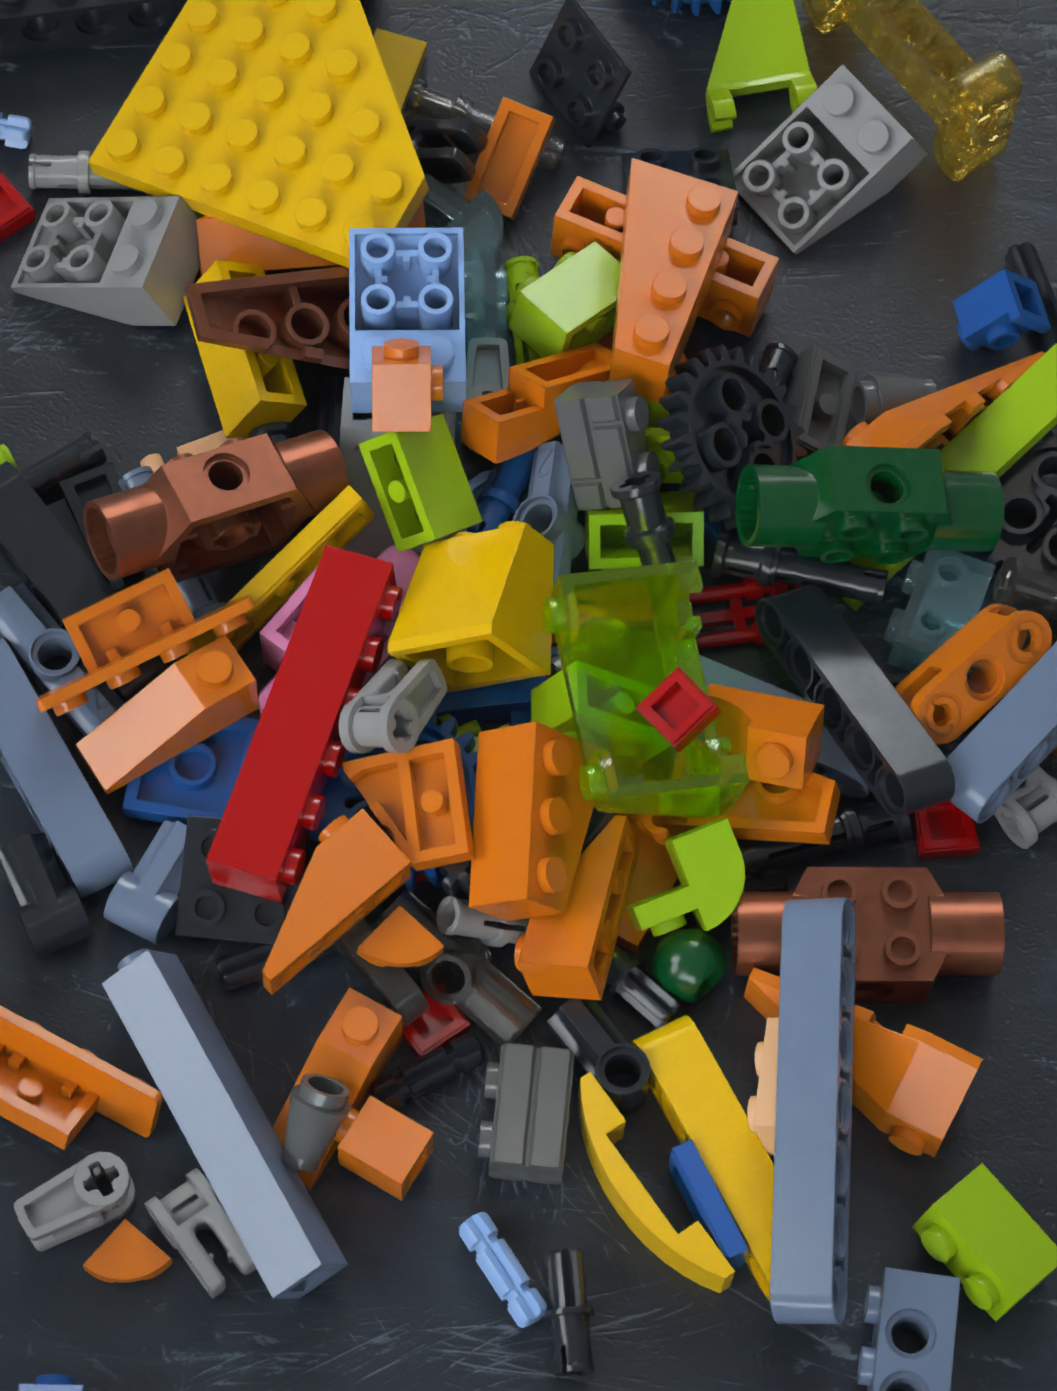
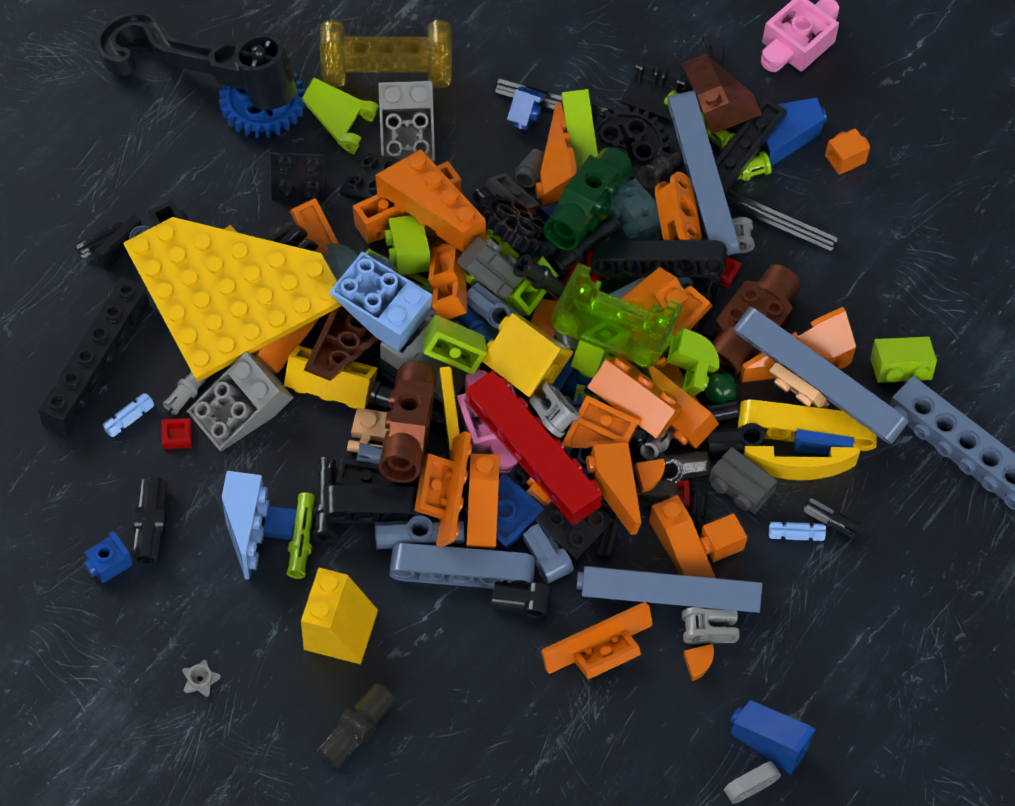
camera: 55 degrees left, 5 degrees down
(73, 1203) = (665, 663): light grey piece -> none
(314, 1118) = (697, 550): dark grey cone -> none
(404, 386) = (422, 315): orange brick -> none
(678, 709) = (627, 314): red tile -> none

